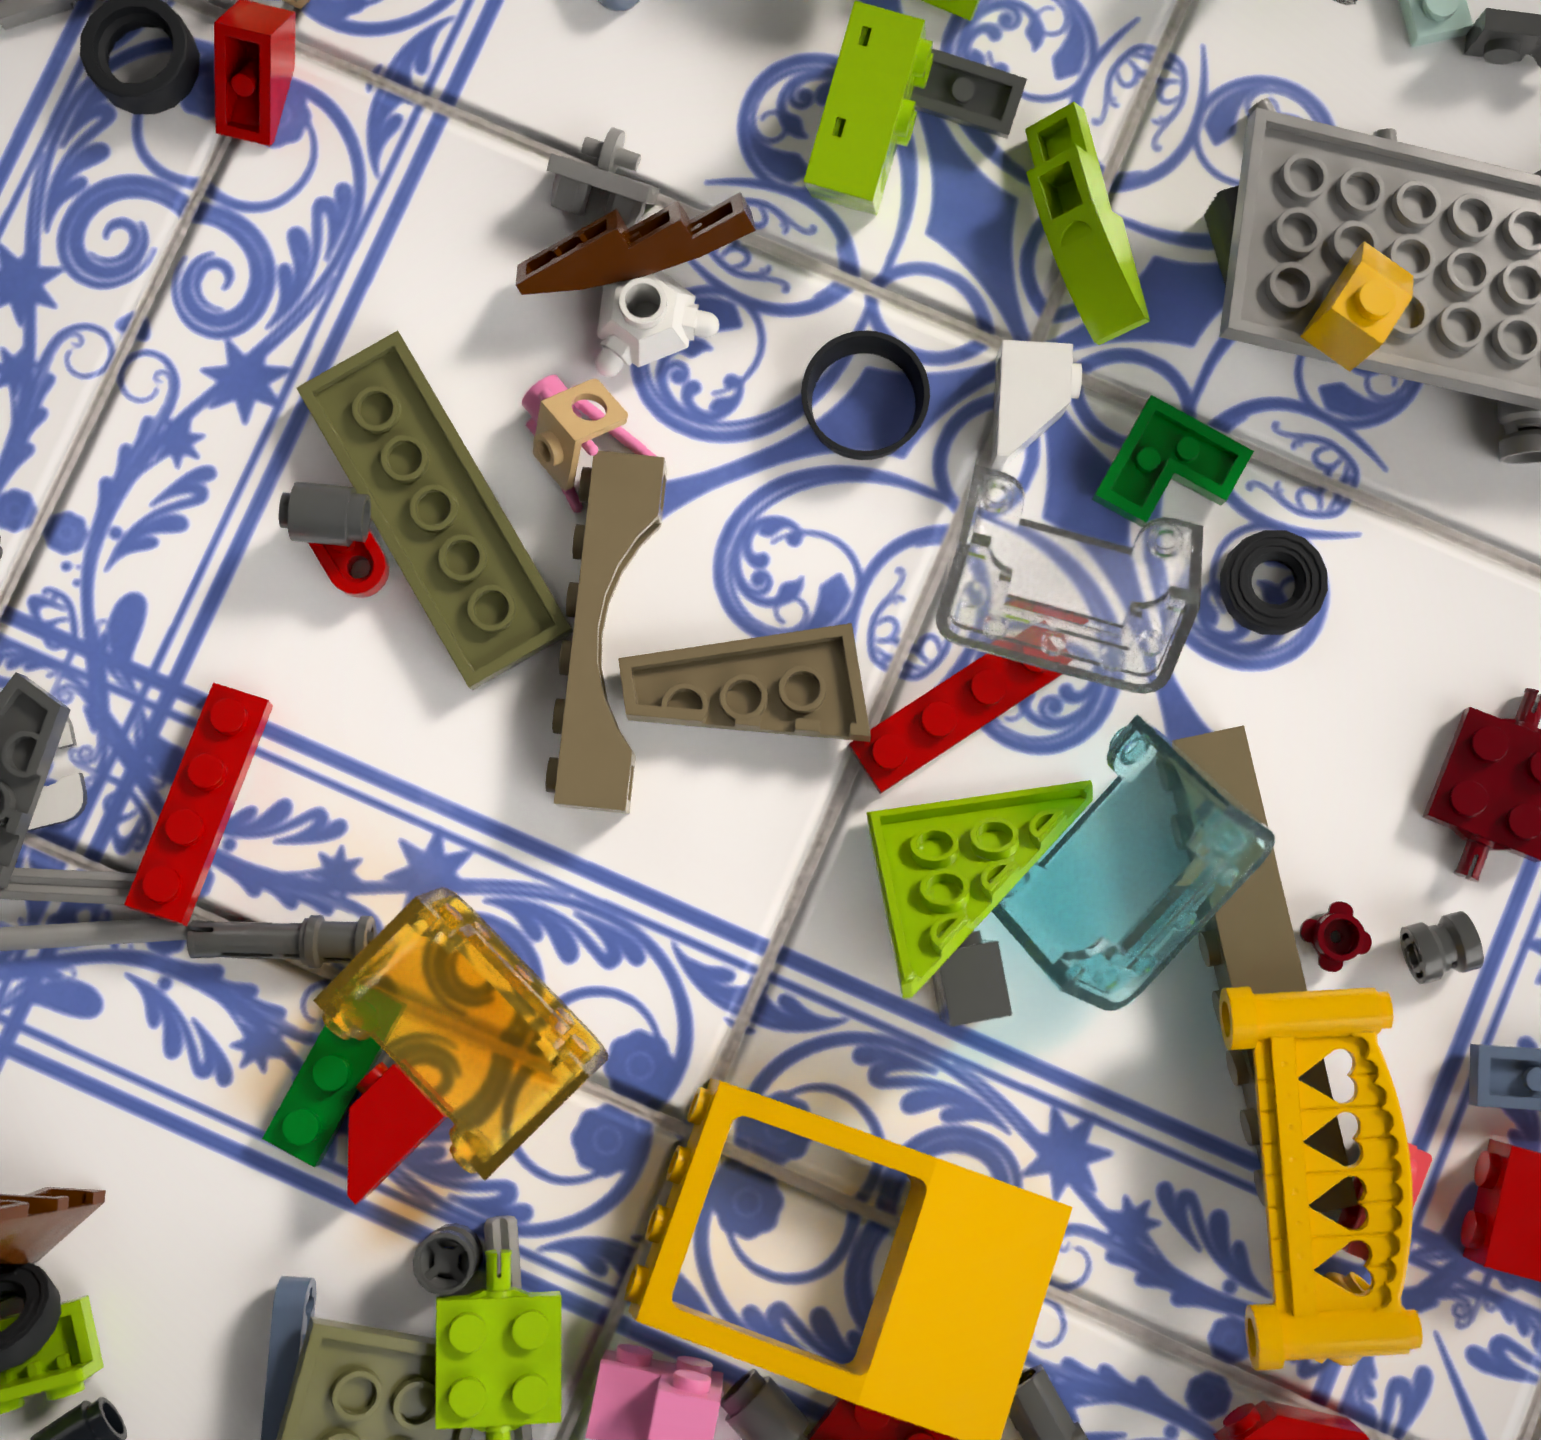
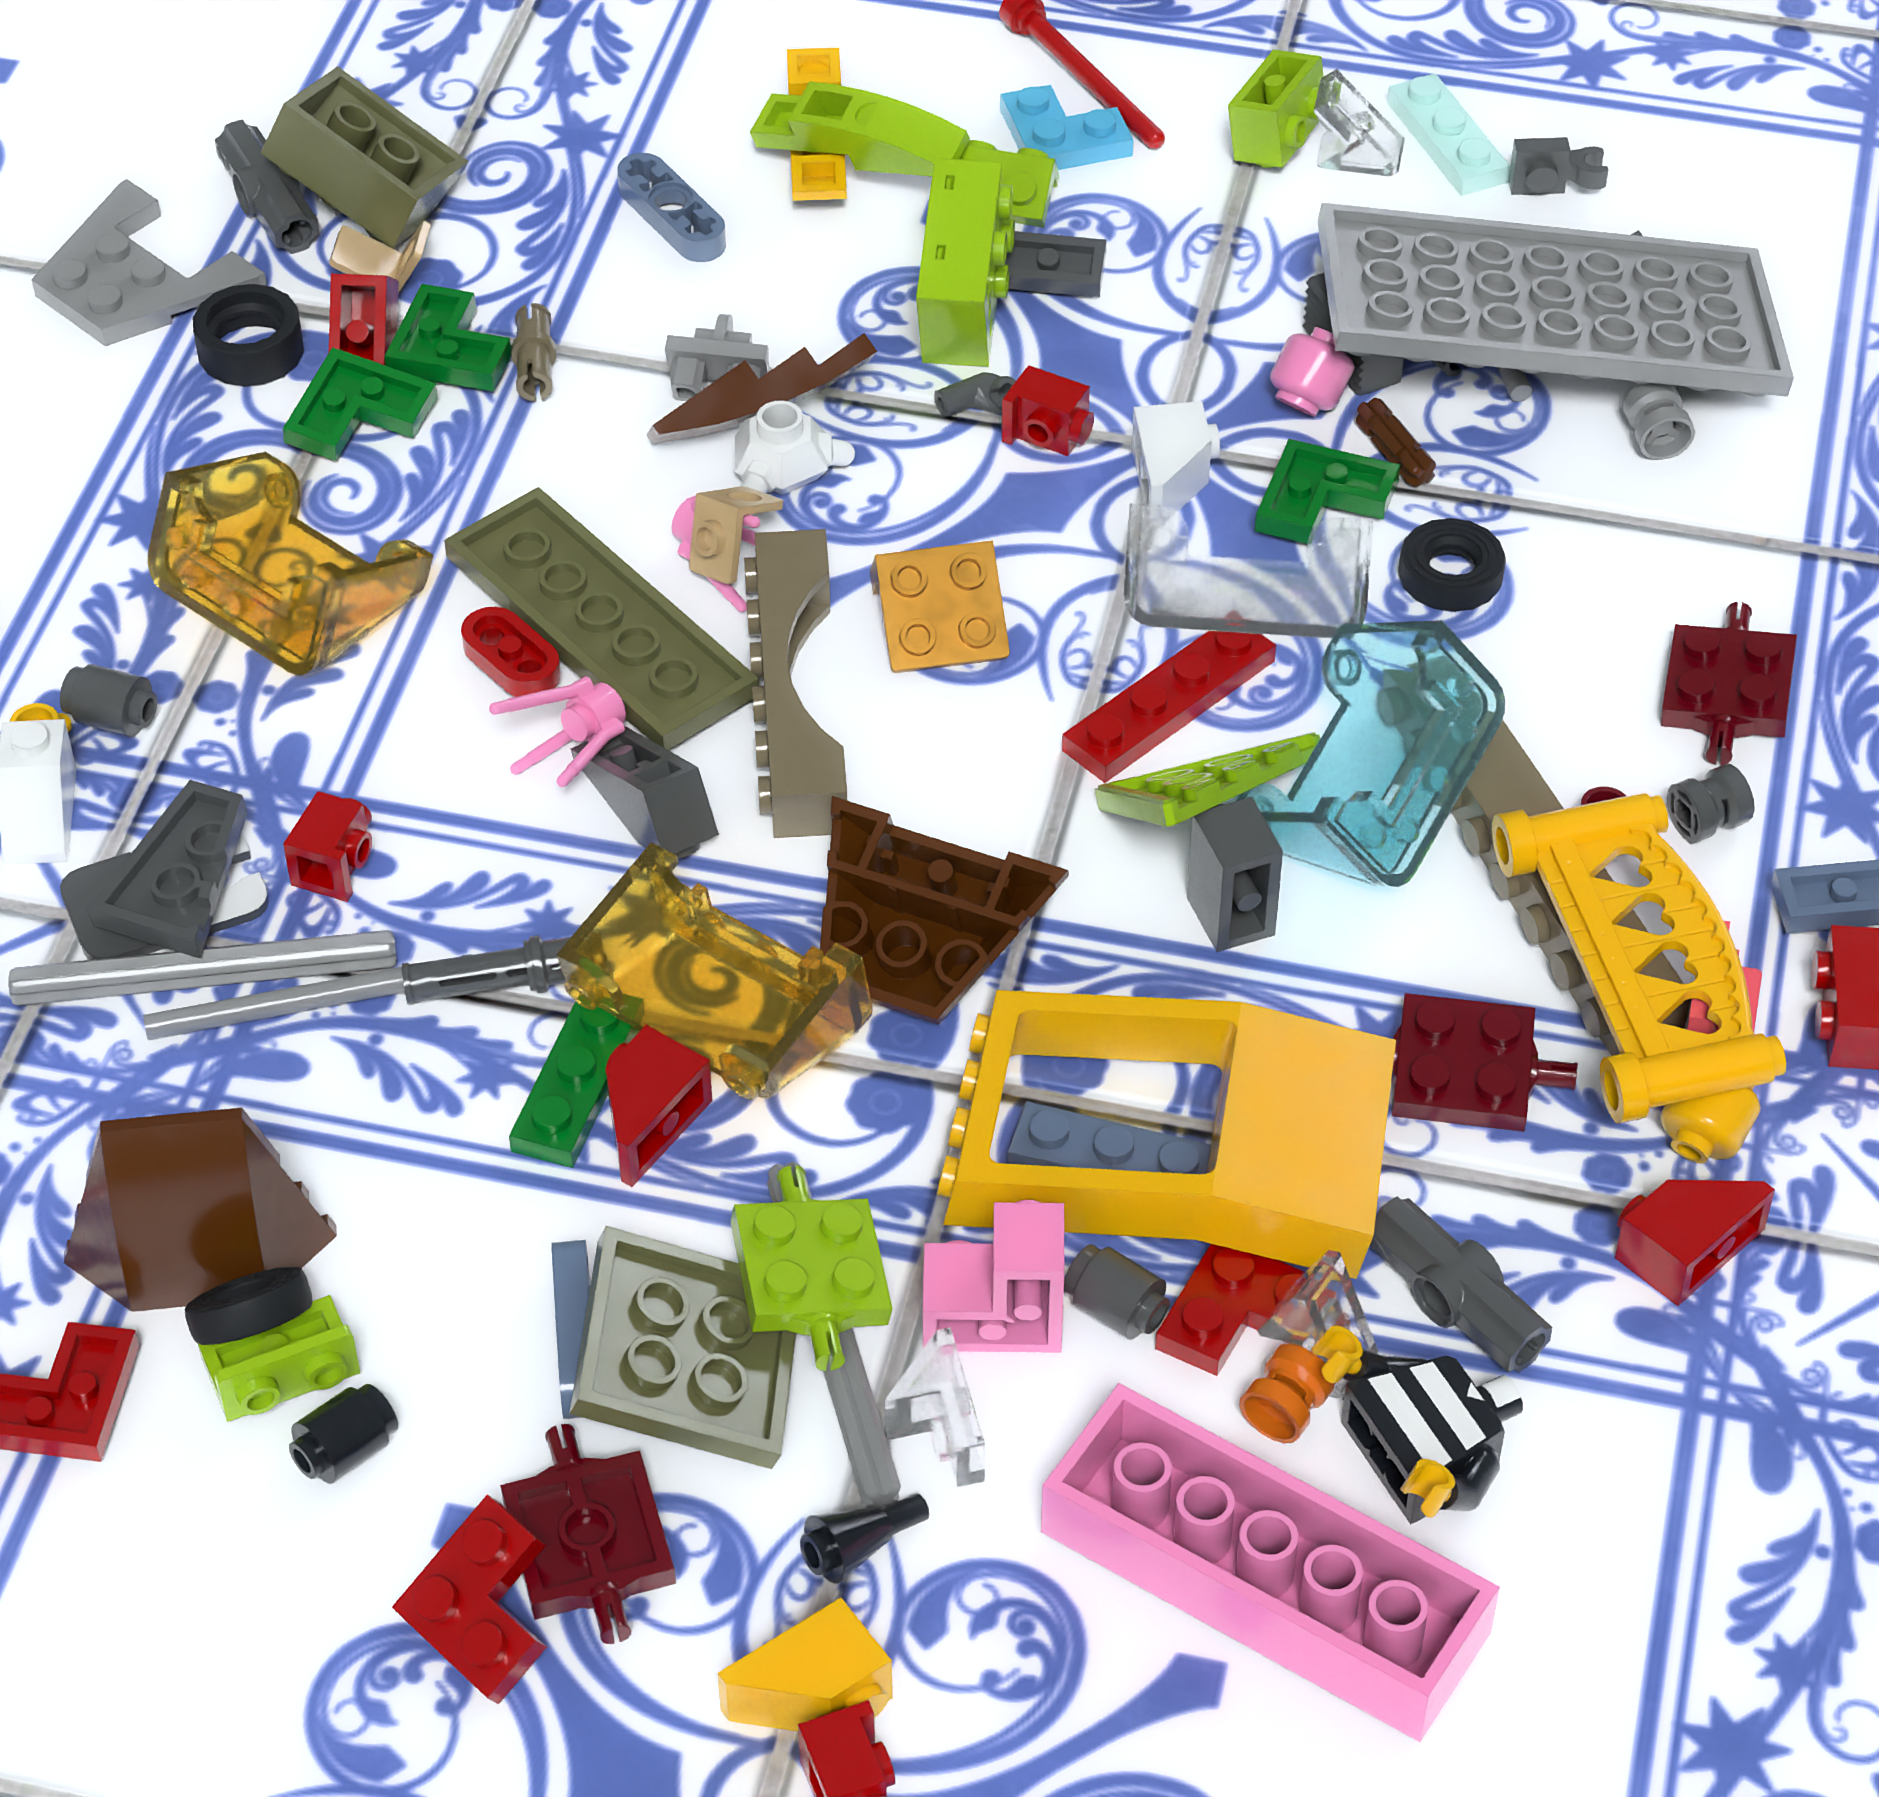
camera: 10 degrees left, 35 degrees down
(132, 388) = (244, 561): none -> clear yellow windscreen
(141, 764) = (328, 845): none -> red brick
(199, 804) = (395, 868): red plate -> none
(230, 159) = (353, 391): none -> green plate
(322, 98) = (439, 348): none -> green plate
(325, 514) = (495, 610): dark grey brick -> none
(400, 644) = (591, 715): none -> bright pink plant
(422, 127) = (533, 352): none -> dark tan pin
(438, 1267) = (729, 1183): dark grey wheel -> none
(442, 746) = (652, 793): none -> dark grey slope
(672, 955) = (923, 908): none -> reddish brown wedge
(759, 684) = (962, 698): dark tan wing -> none
(763, 555) = (941, 606): none -> bracket
(794, 1251) = (1081, 1141): none -> sand blue plate
(861, 261) = (979, 391): none -> dark grey arm
(867, 343) = (1018, 445): black tyre -> none
(919, 311) = (1047, 411): none -> red brick
(1081, 227) = (1191, 333): lime slope -> none
(1134, 1205) = (1469, 1063): none -> dark red plate
(1190, 309) = (1311, 372): none -> bright pink head
(1258, 404) = (1396, 442): none -> reddish brown axle
(1360, 308) = (1454, 299): yellow slope -> none

